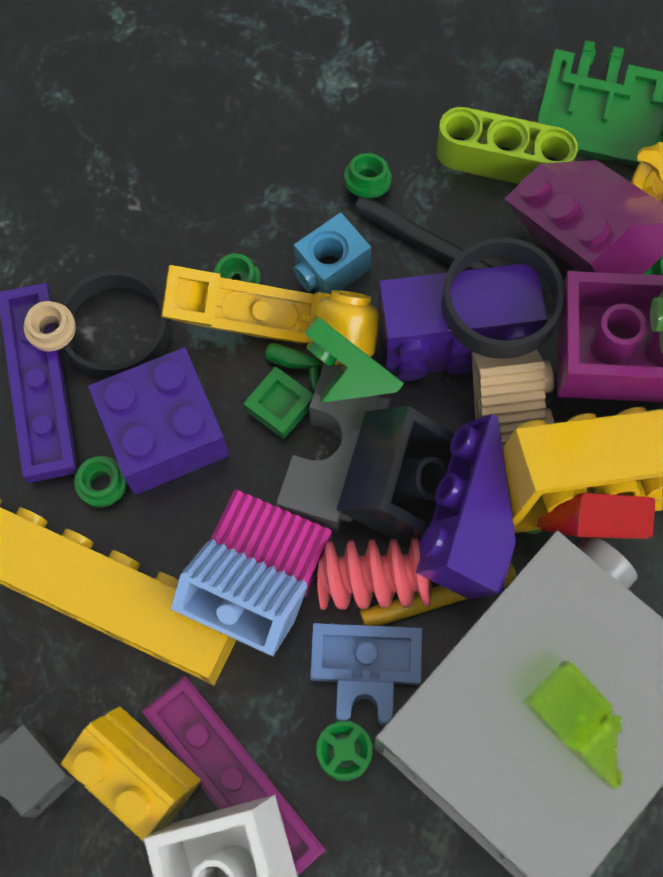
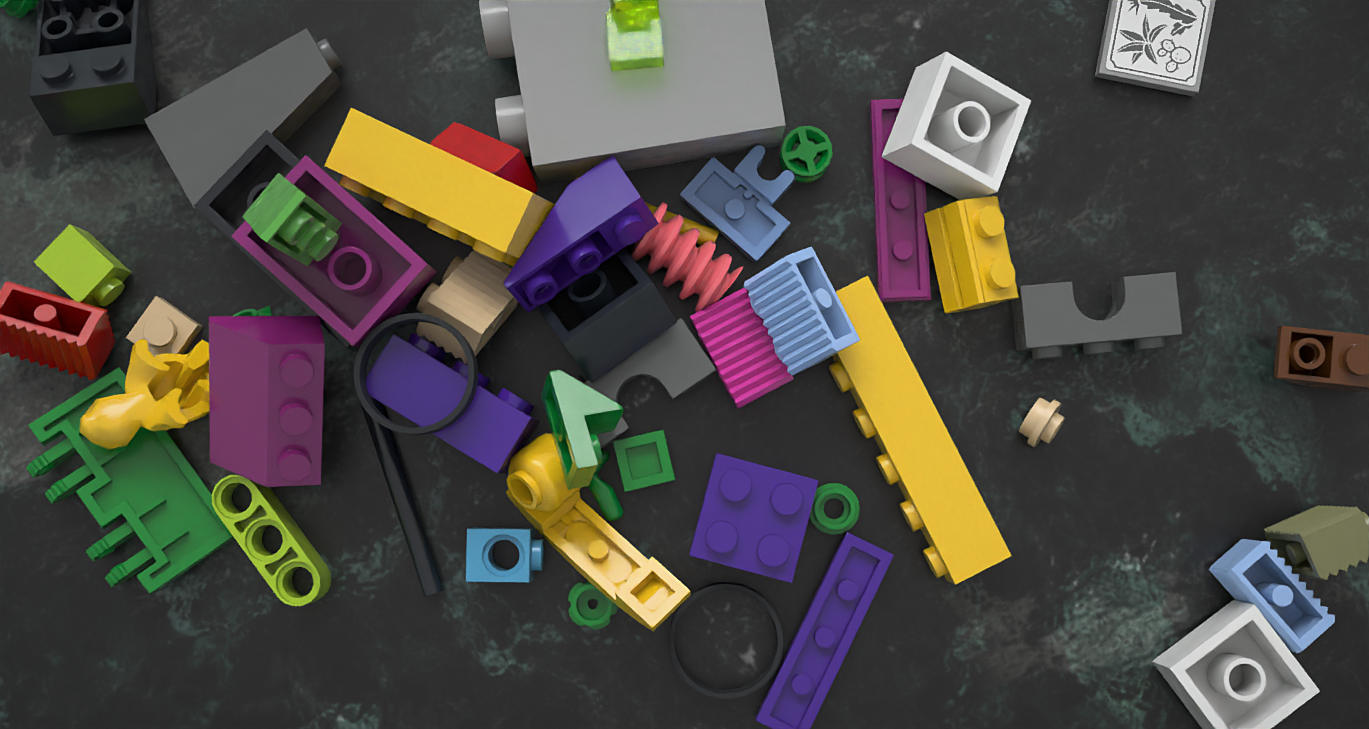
camera: 145 degrees left, 15 degrees up
(46, 313) = (785, 686): tan plate -> none
(367, 176) = (397, 616): green plate -> none

